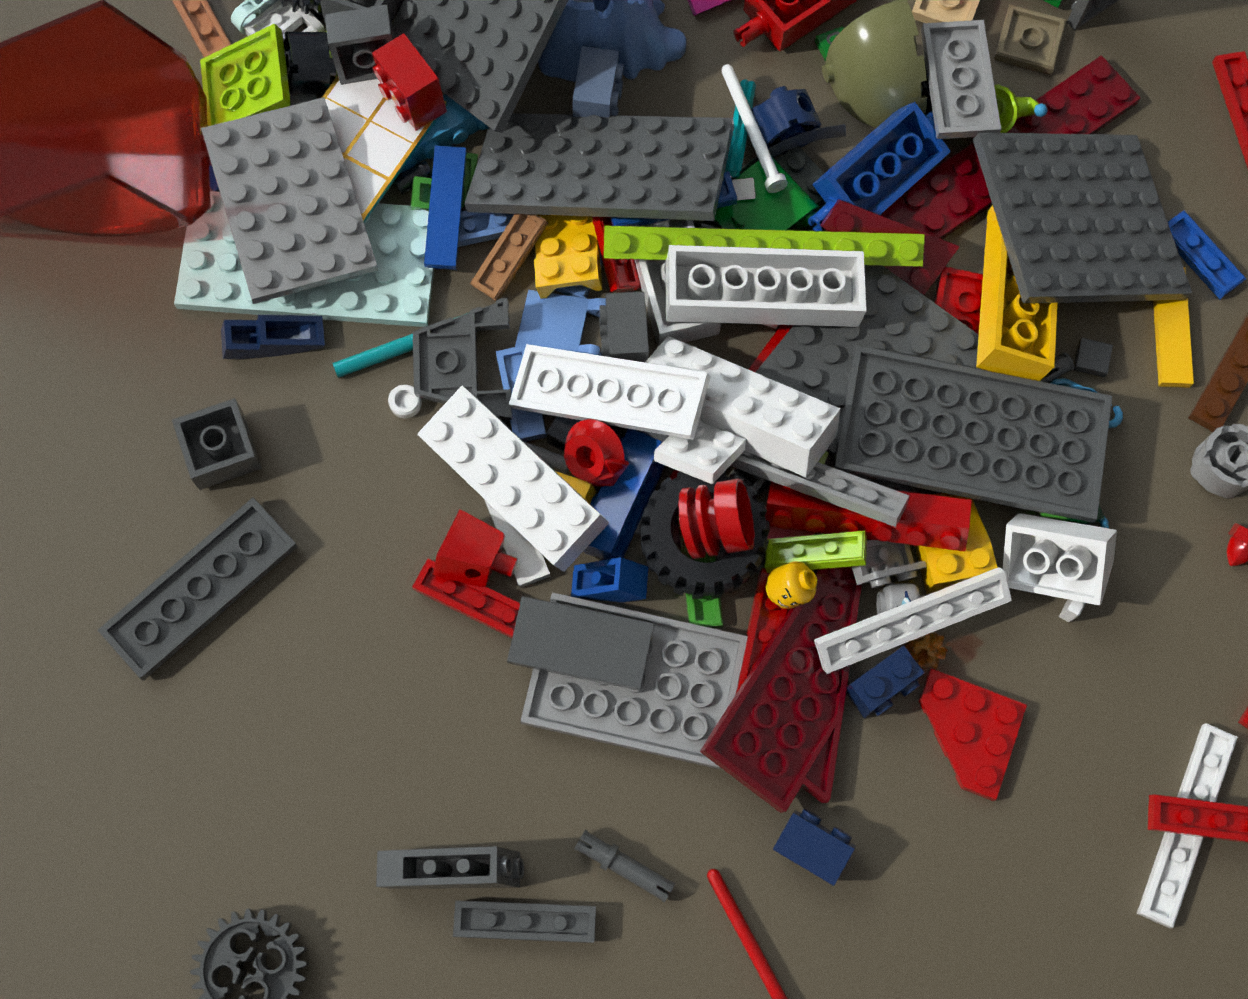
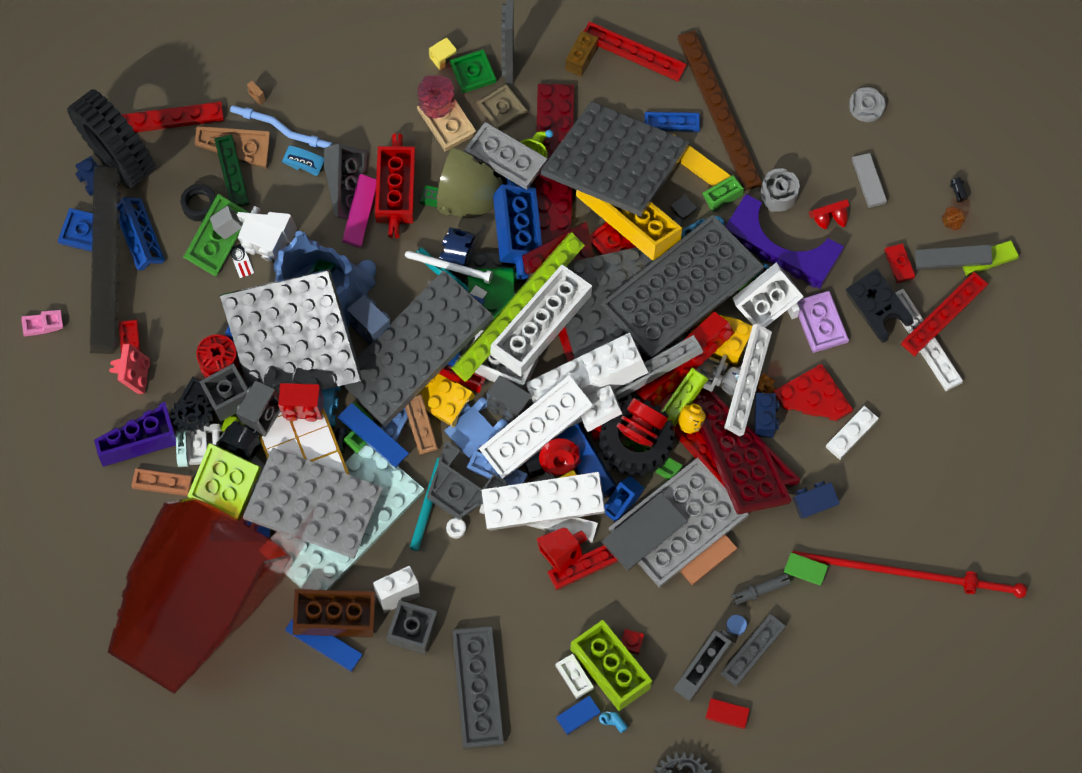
camera: 50 degrees left, 5 degrees down
(126, 356) = (331, 648): none -> blue tile
(163, 334) = (333, 613): none -> reddish brown brick
(251, 383) = (395, 587): none -> white brick
(255, 748) = (578, 715): none -> blue tile
(271, 336) = (372, 565): dark blue slope -> none
(283, 799) = (613, 718): none -> dark azure arm
(305, 702) = (574, 676): none -> white plate
(352, 740) = (611, 665): none -> lime brick
(405, 953) = (727, 713): none -> red tile
(414, 743) = (632, 641): none -> red plate
(546, 870) = (736, 625): none -> medium blue tile
(613, 761) = (708, 560): none -> nougat tile
(702, 908) = (805, 568): none -> bright green slope
(961, 823) = (852, 432): none -> white plate
(1089, 660) = (821, 322): none -> lavender tile
(1156, 583) = (811, 265): none -> dark purple arch
(1159, 392) = (723, 193): none -> bright green slope
(1181, 728) = (880, 309): none -> black brick
(1191, 74) = (581, 53): none -> pearl gold brick

